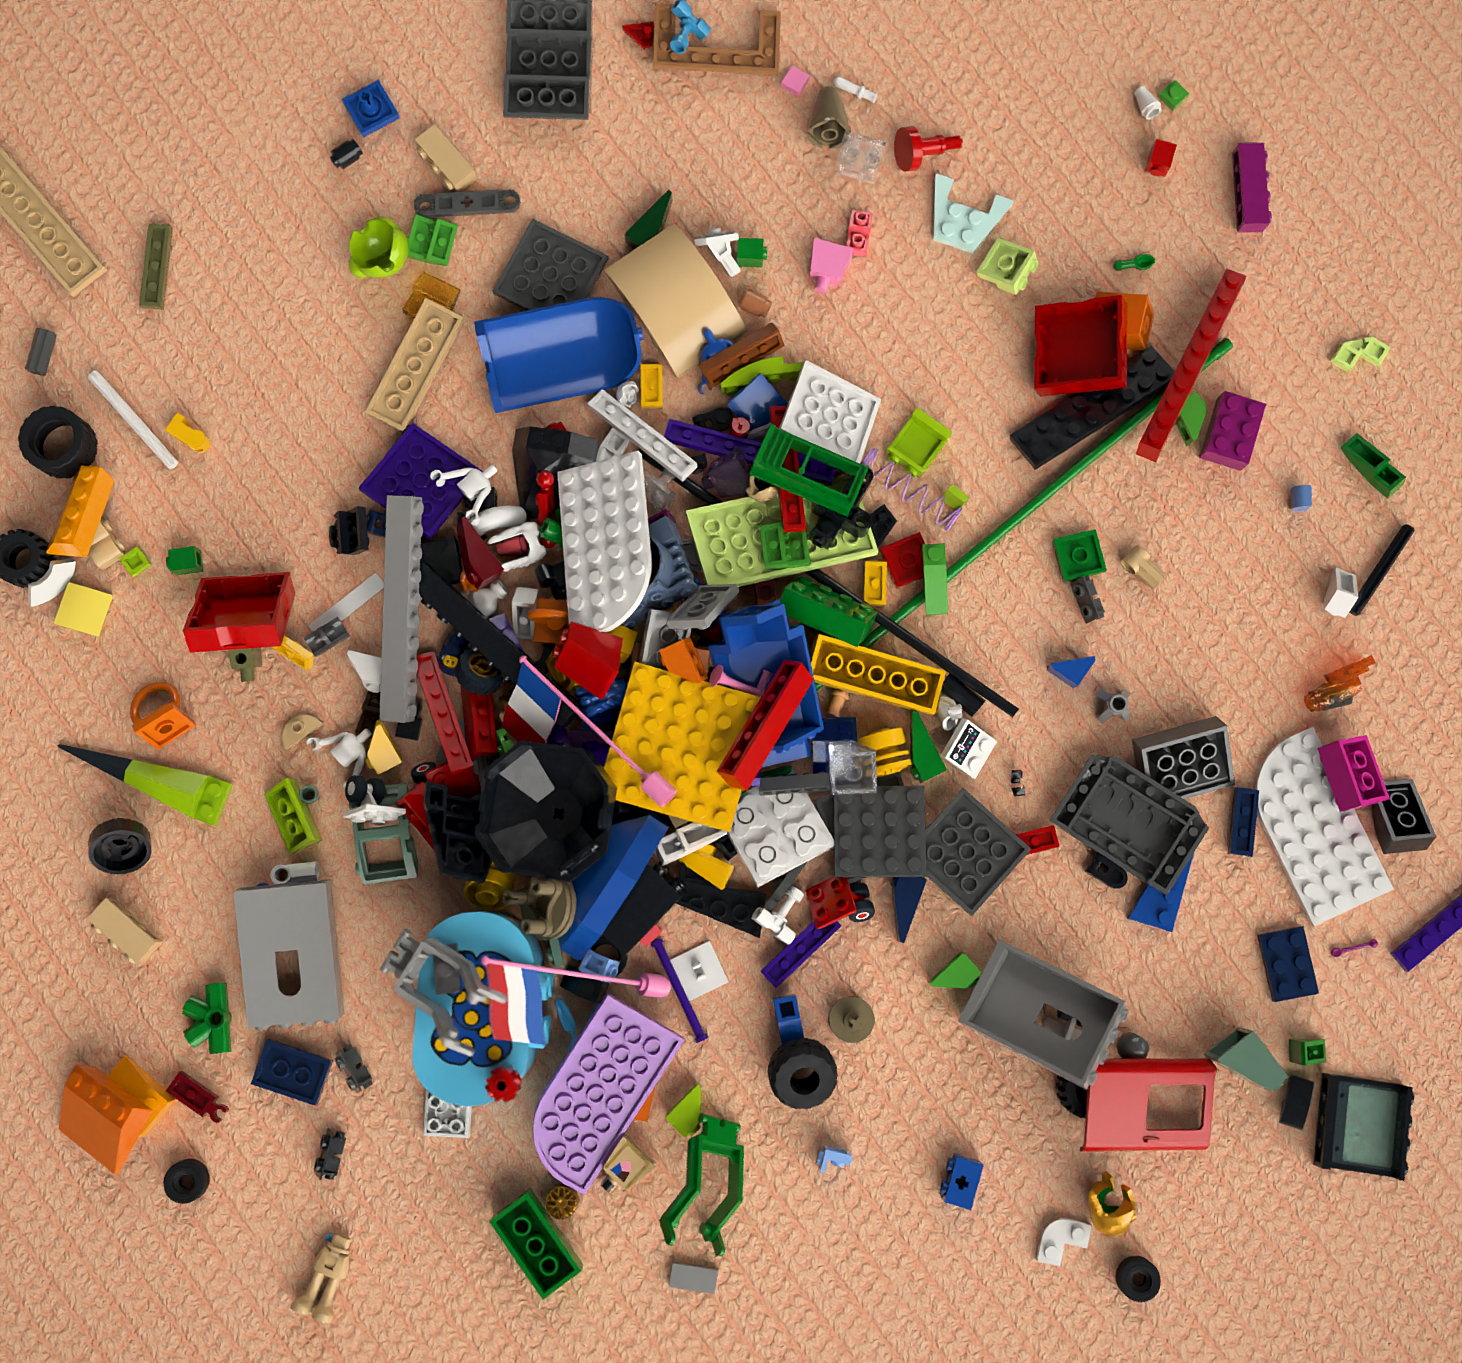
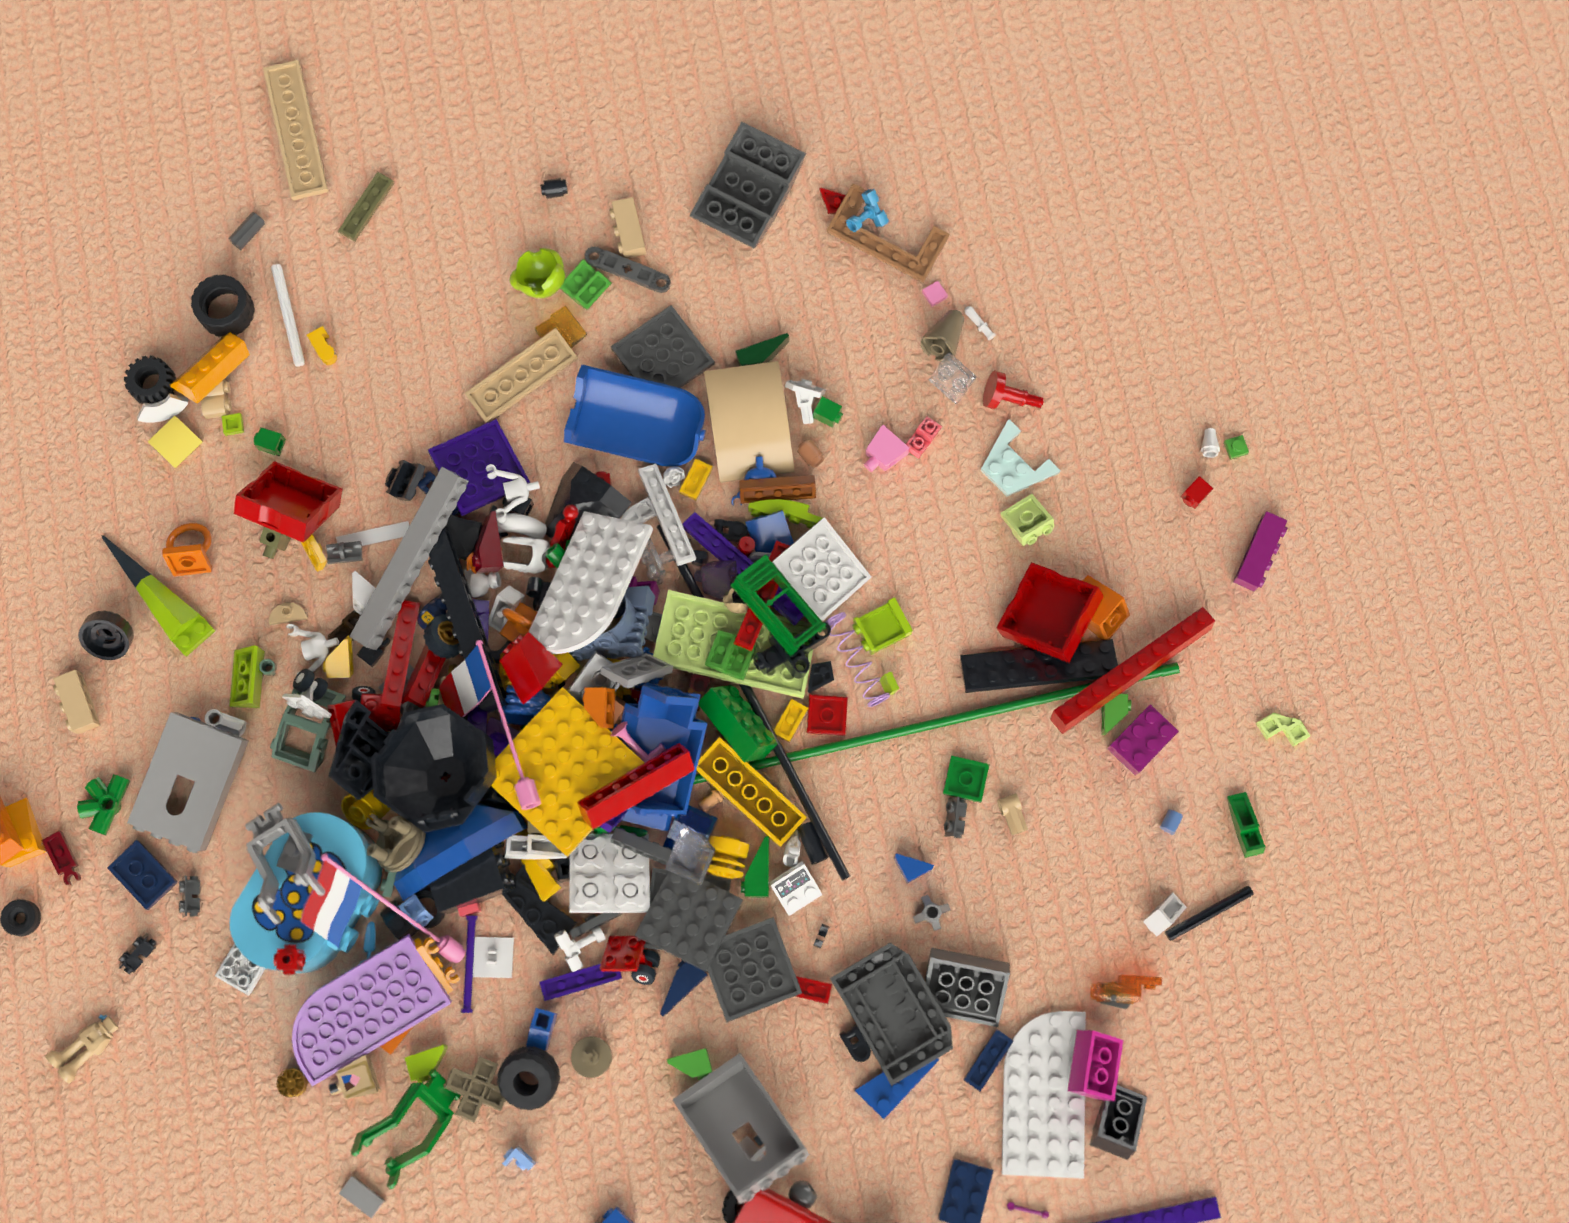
camera: 30 degrees right, 5 degrees down
(370, 108) = (592, 162): blue plate -> none
(514, 546) = (522, 552): coral cone -> none
(536, 1243) = (255, 1104): green brick -> none
(647, 1008) = (435, 964): none -> light orange plate
(753, 1112) = (475, 1089): none -> dark tan plate
(934, 578) = (837, 740): bright green slope -> none
(1140, 262) = (1138, 568): green piece -> none

